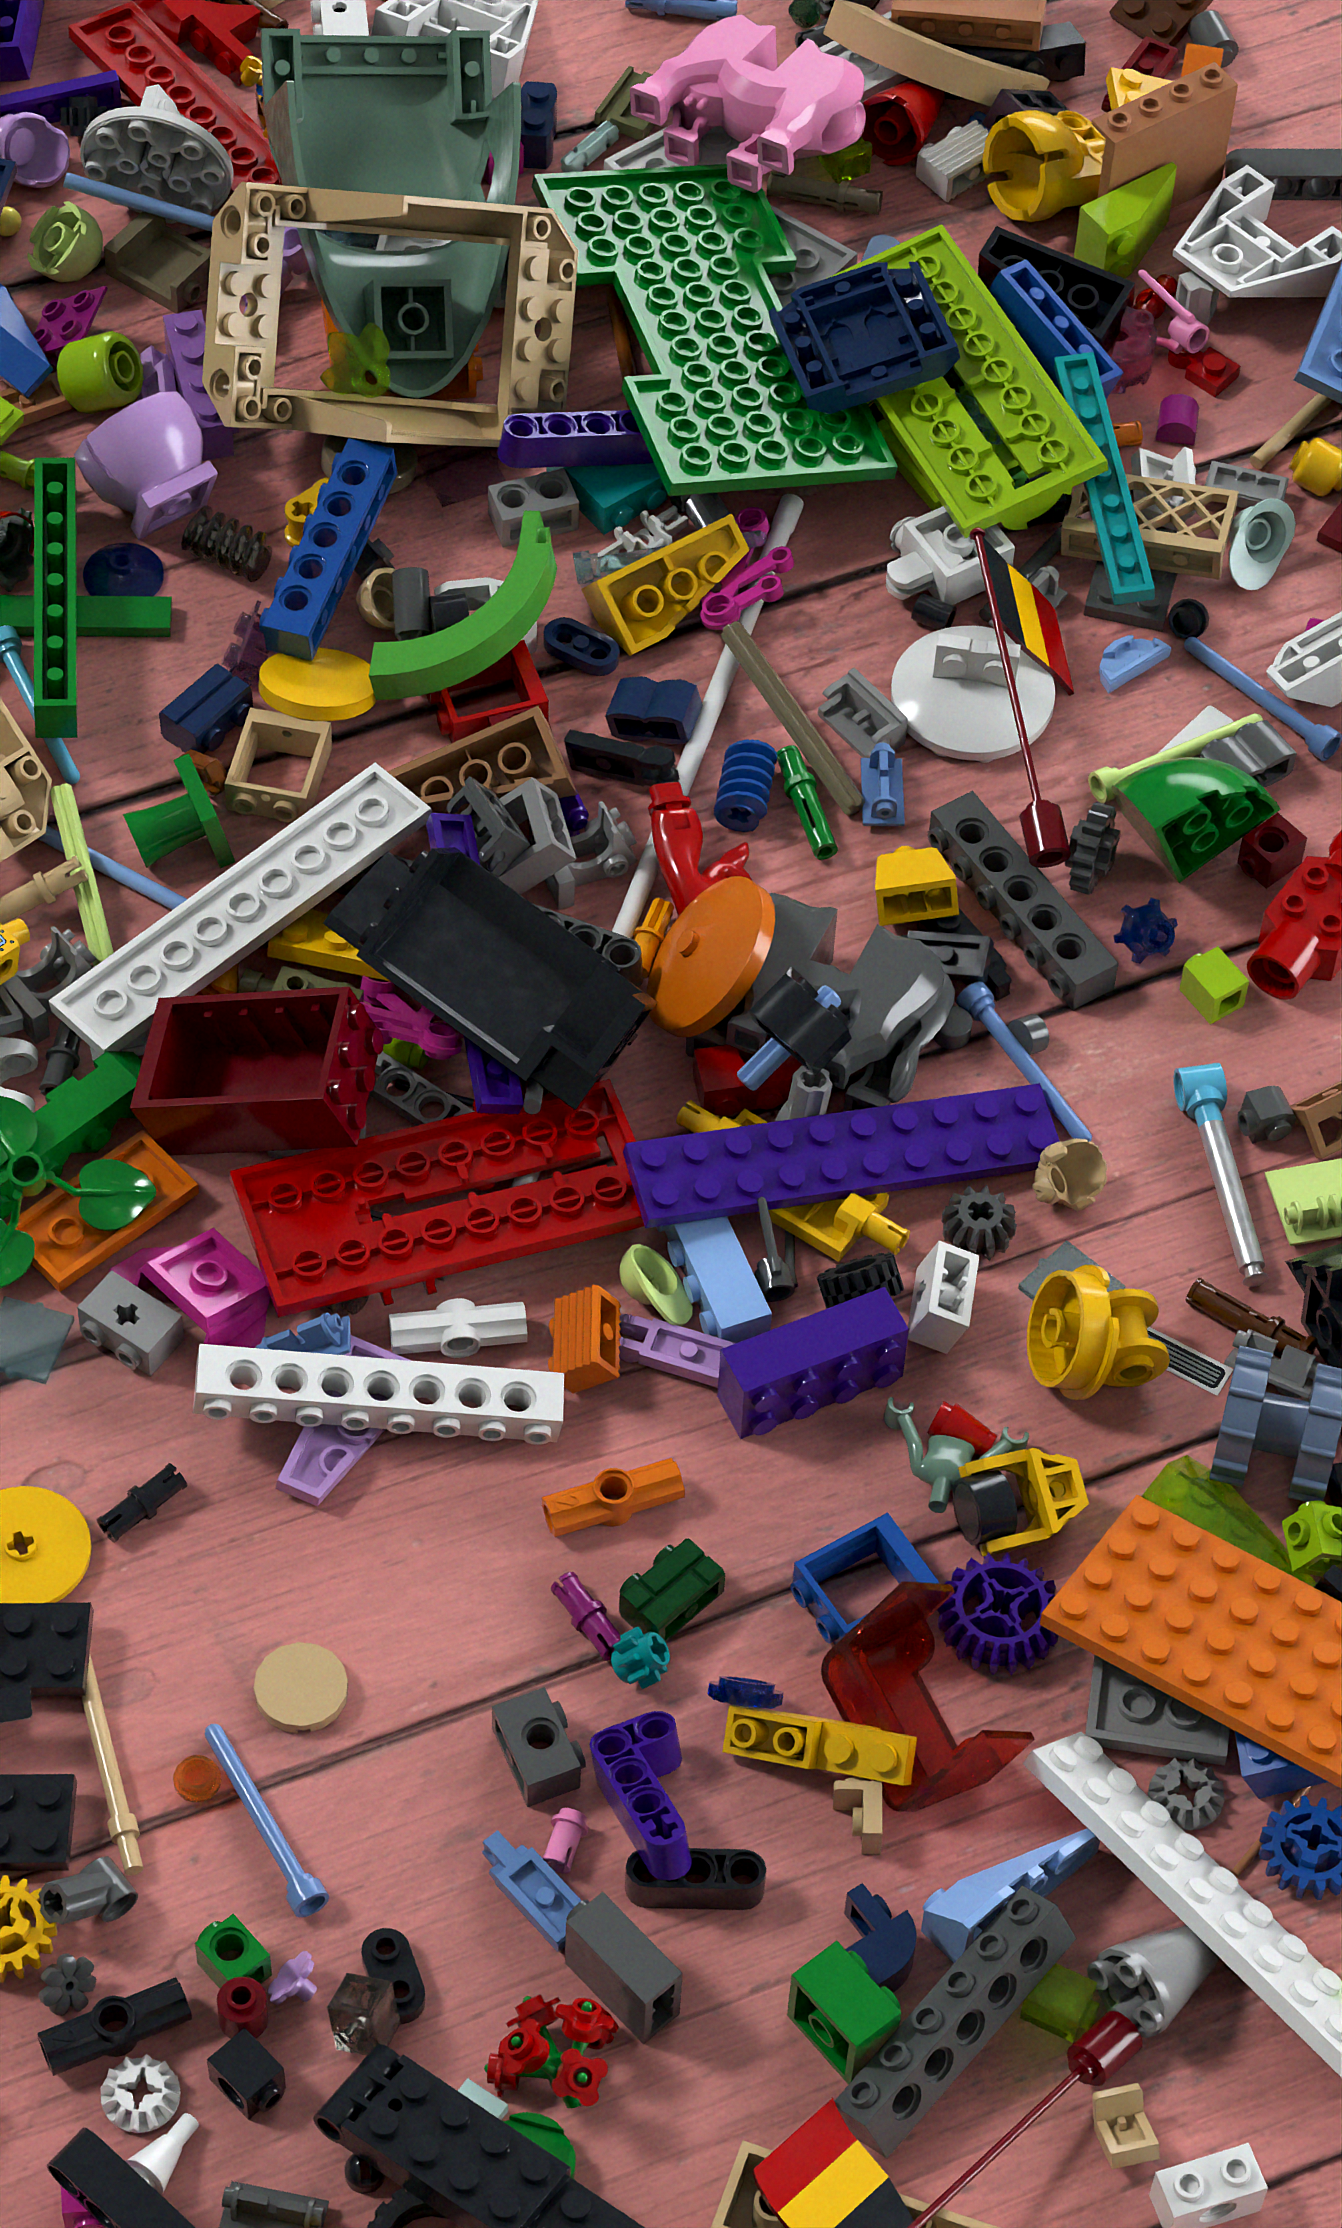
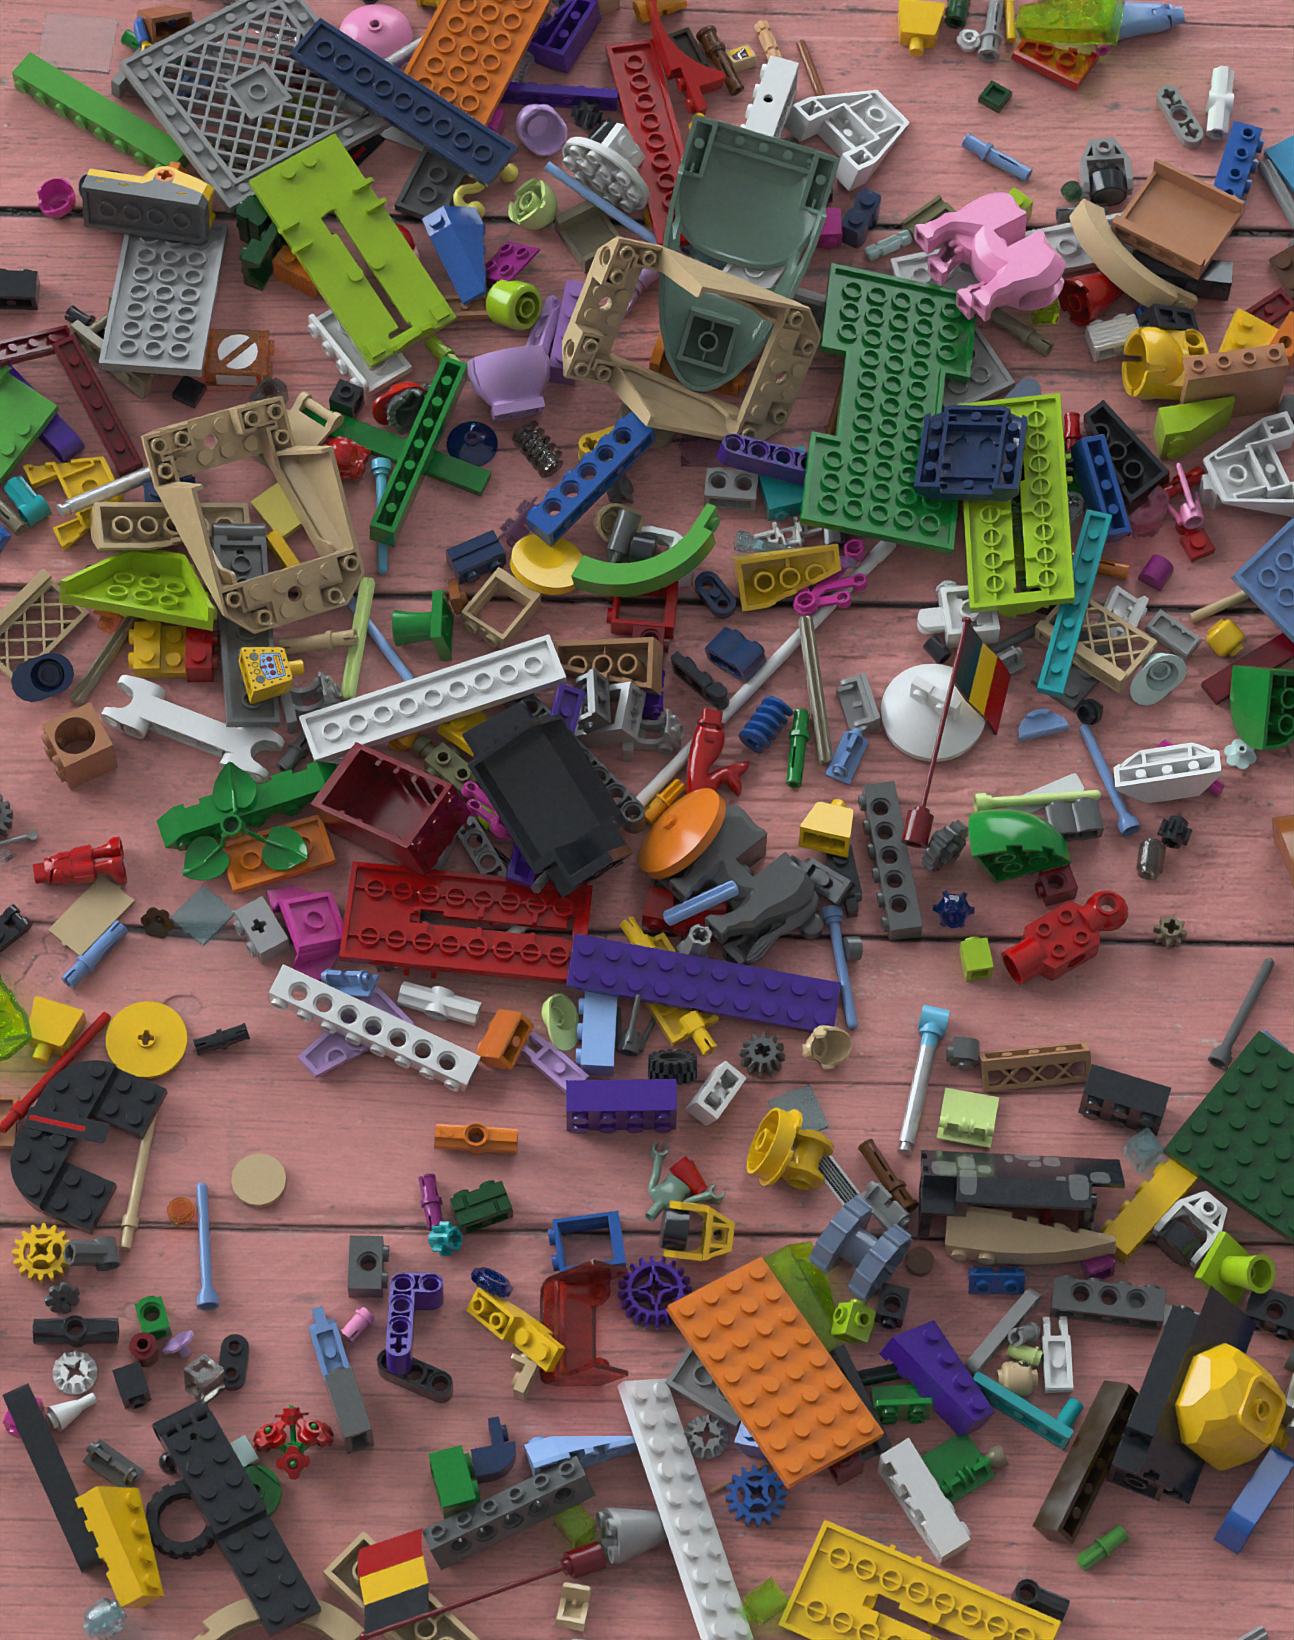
camera: 25 degrees right, 10 degrees up
(353, 358) = (662, 355): clear neon green plate -> none
(802, 1023) = (705, 900): black brick -> none

